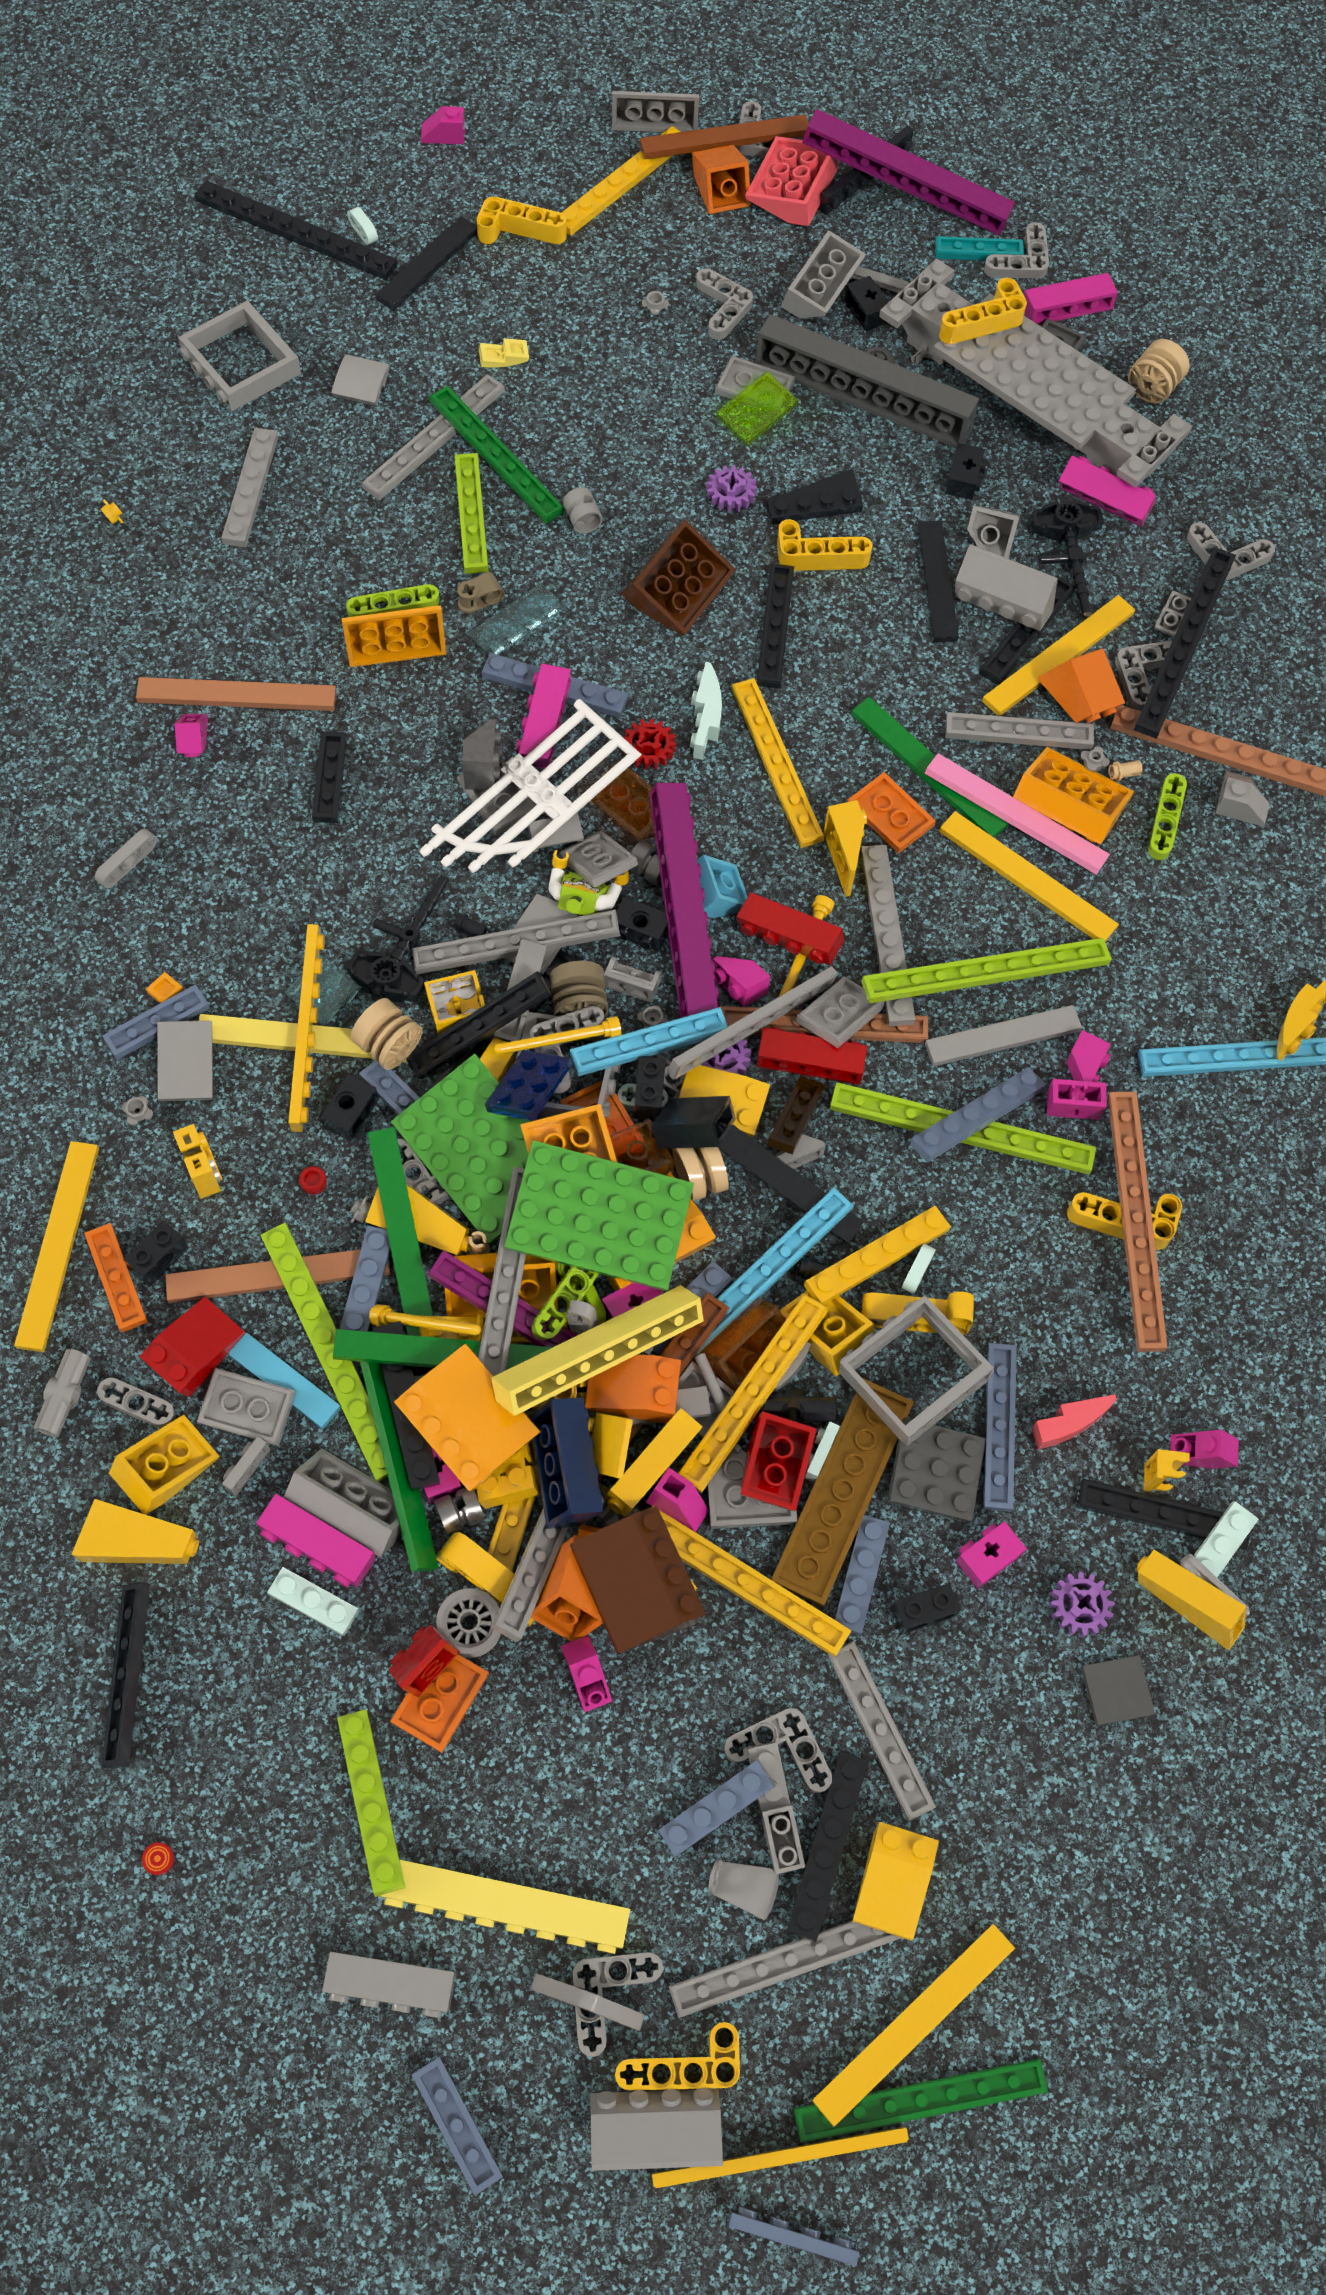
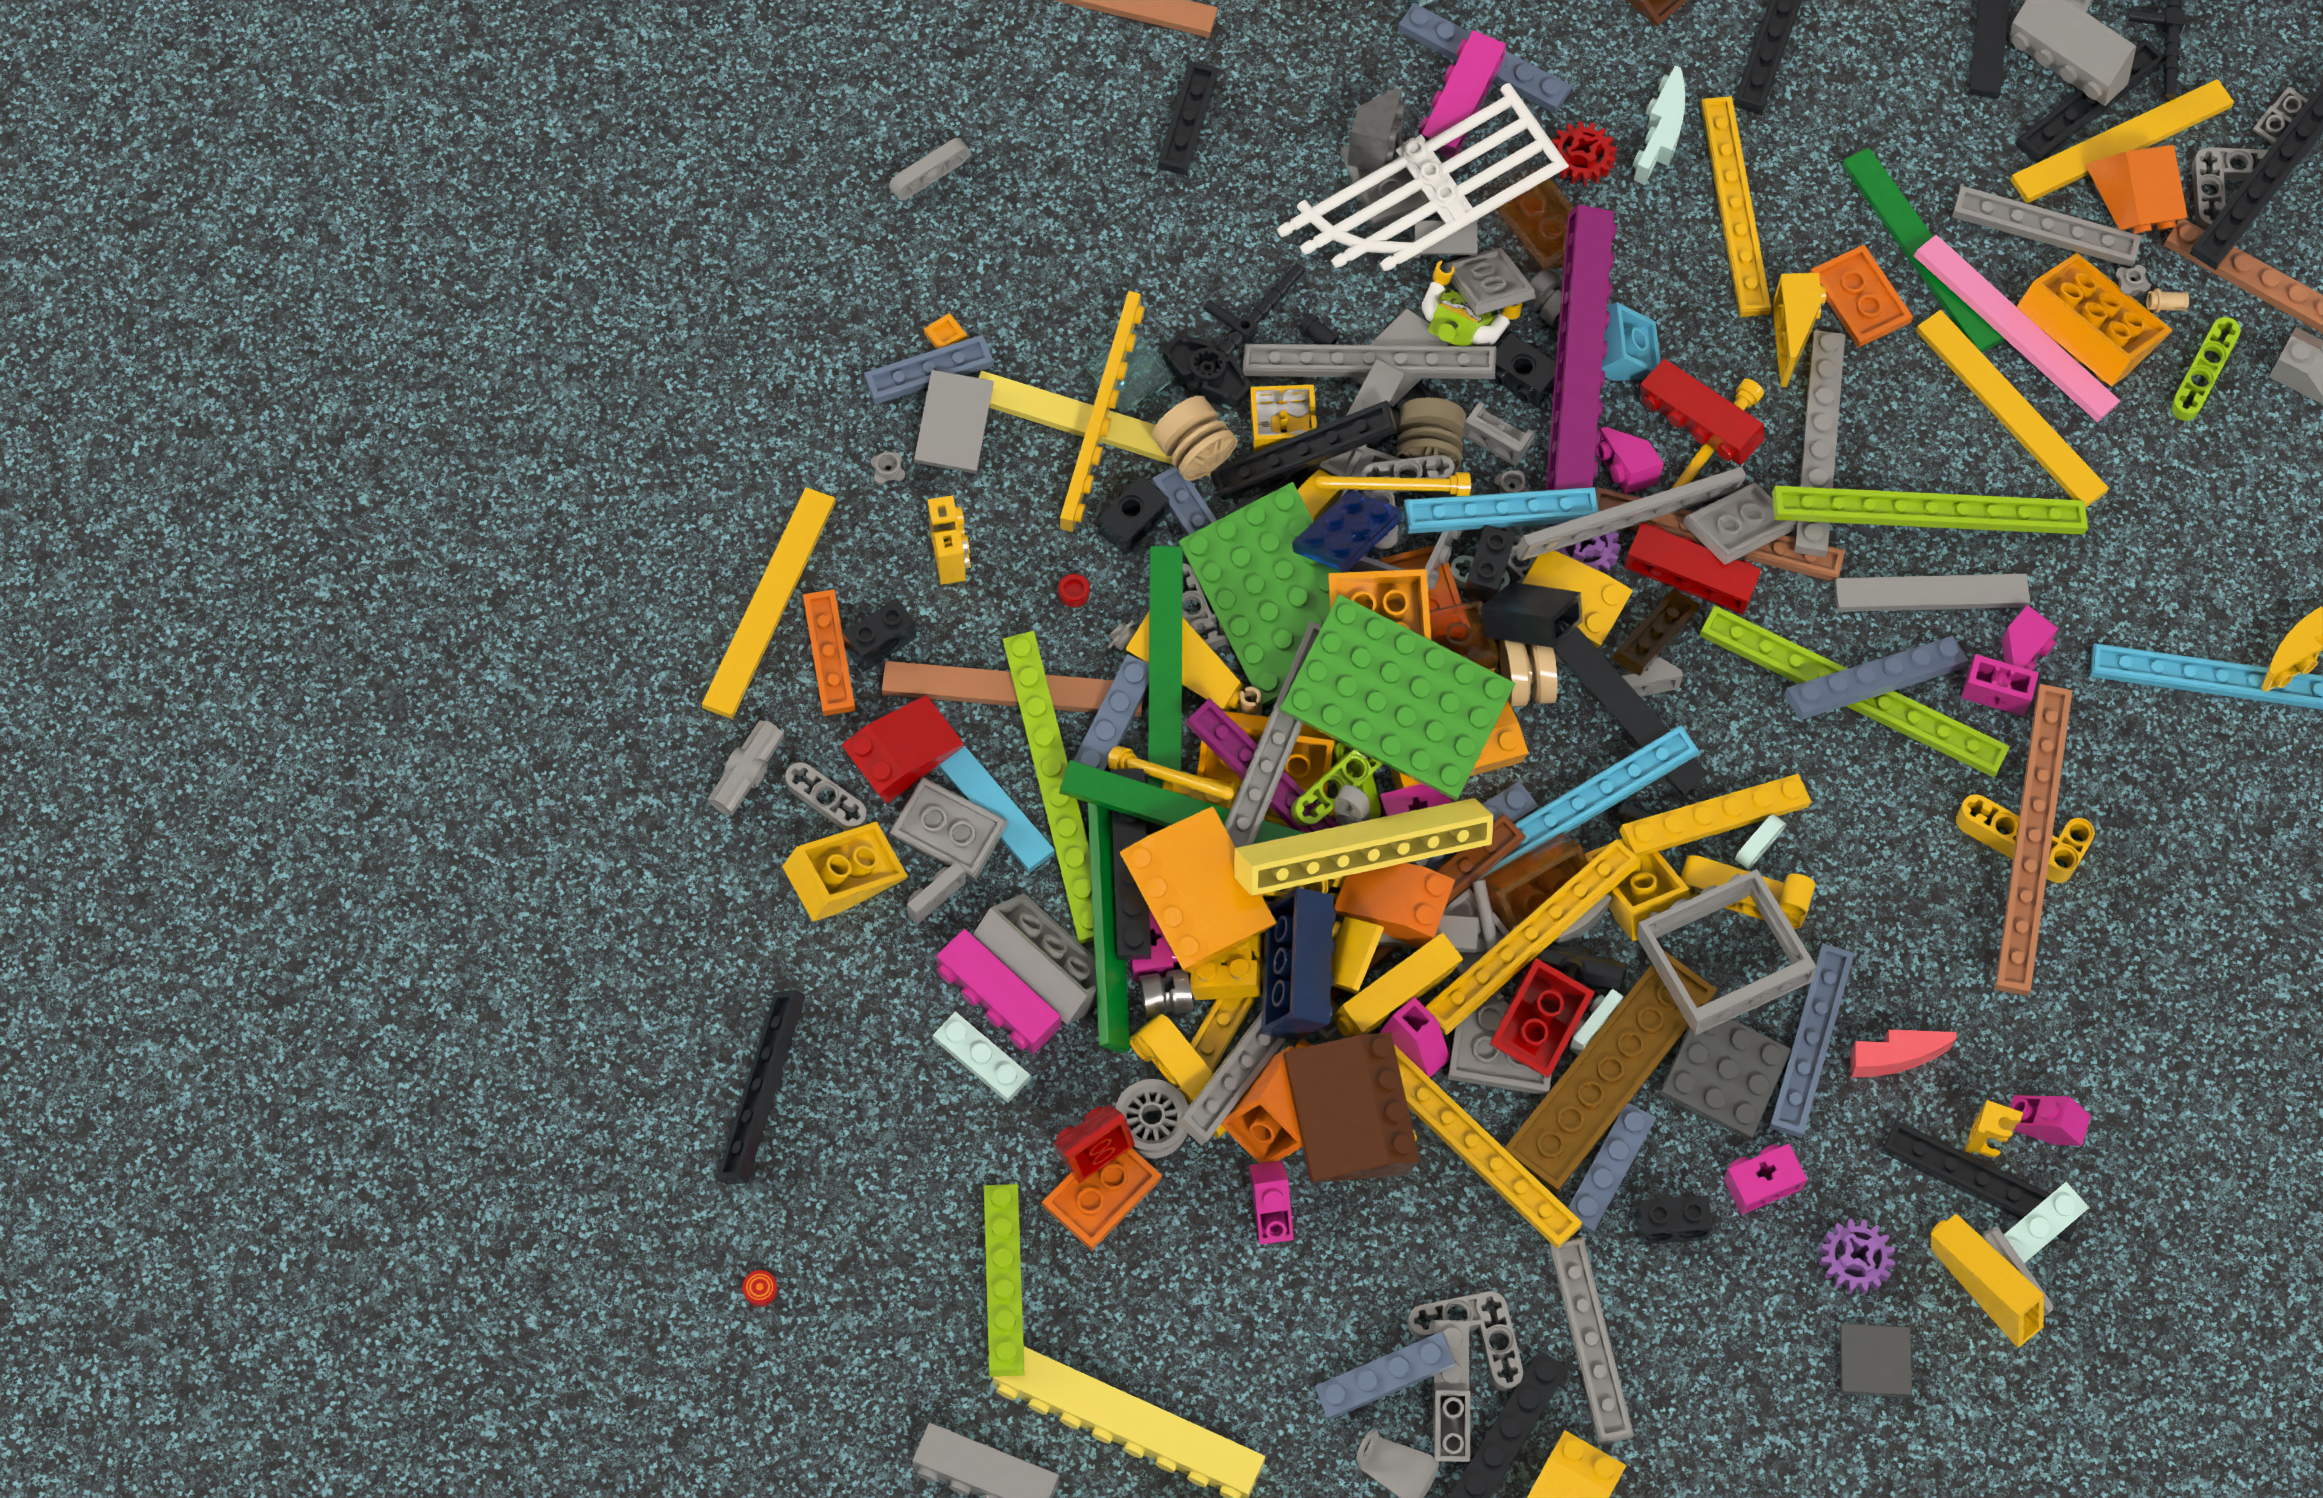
camera: 15 degrees right, 0 degrees up
(127, 1536) = (795, 942): yellow slope -> none
(191, 734) = (1034, 34): dark pink slope -> none

